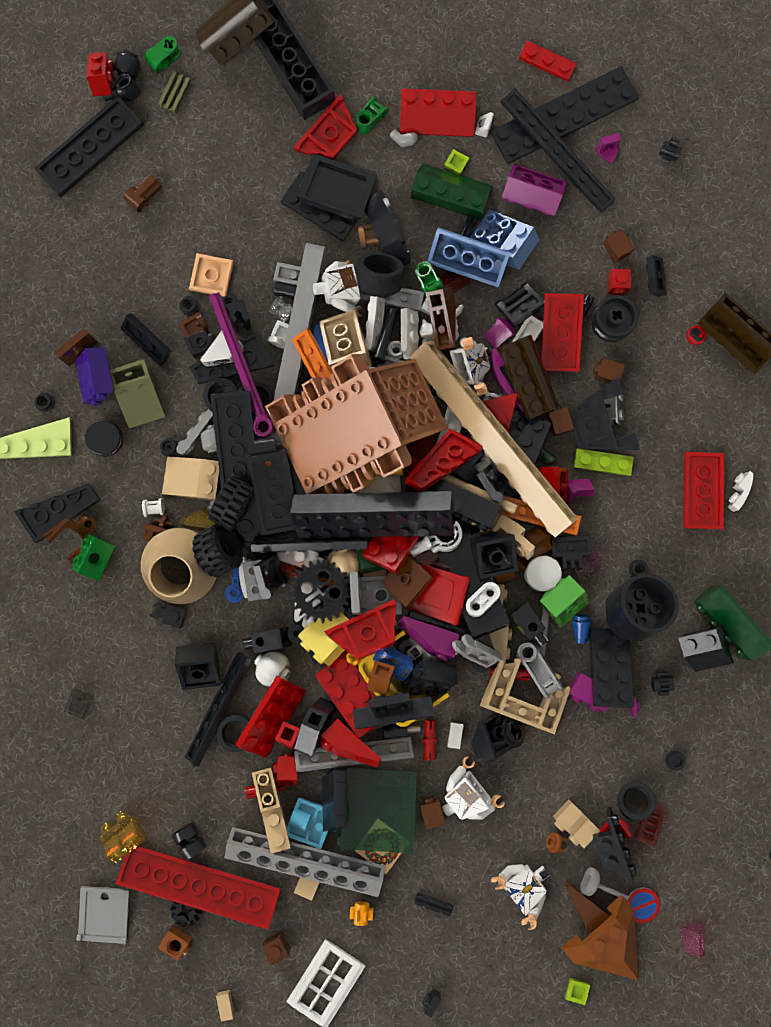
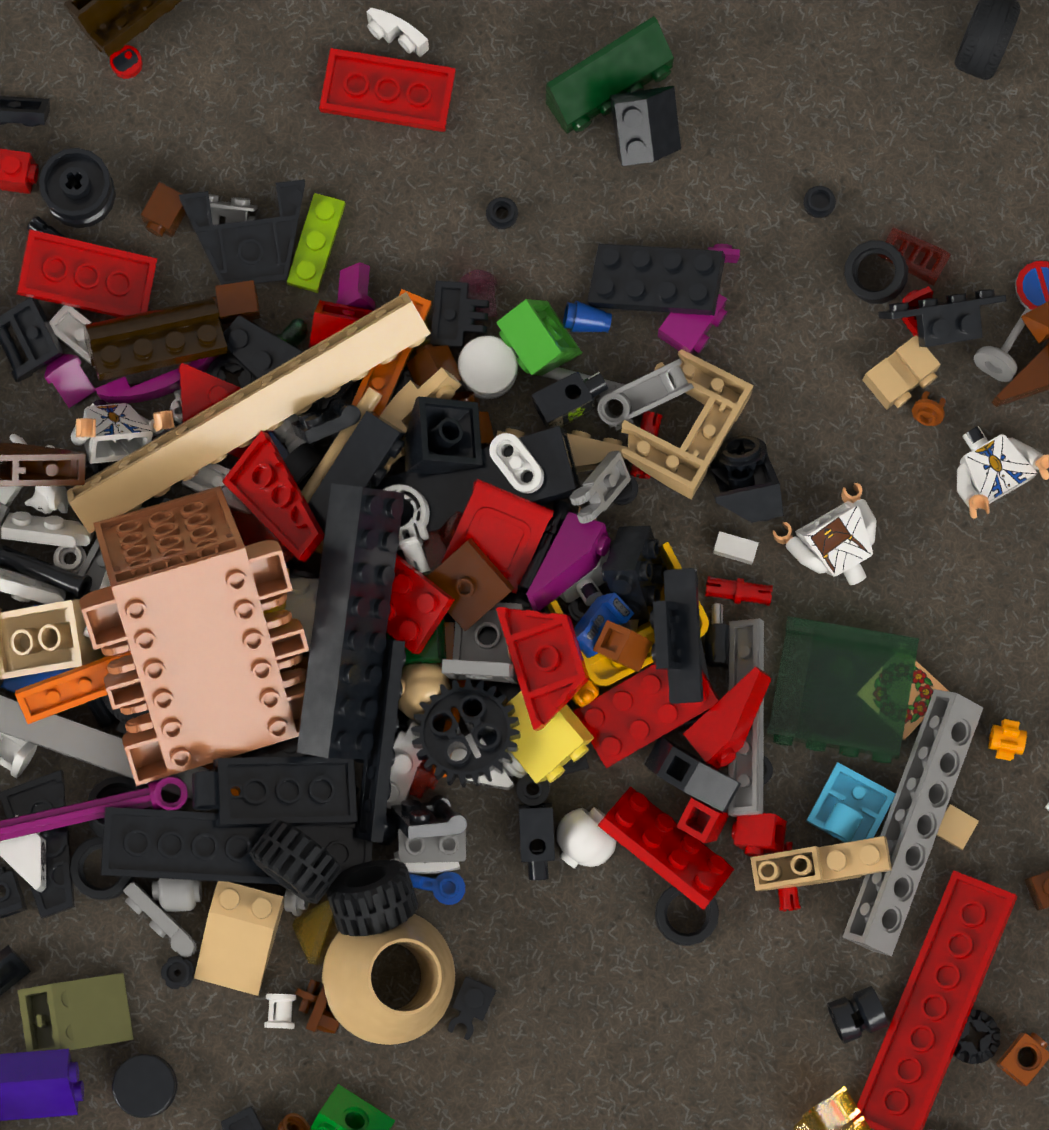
camera: 85 degrees left, 5 degrees down
(197, 666) = (565, 964): black slope -> none
(217, 709) = (642, 939): black tile -> none
(334, 801) = (818, 755): black piece -> none
(432, 812) = (857, 601): reddish brown brick -> none
(433, 904) = (1006, 621): black axle -> none
(655, 604) = (560, 193): black brick -> none
(662, 683) = (692, 202): black gear -> none

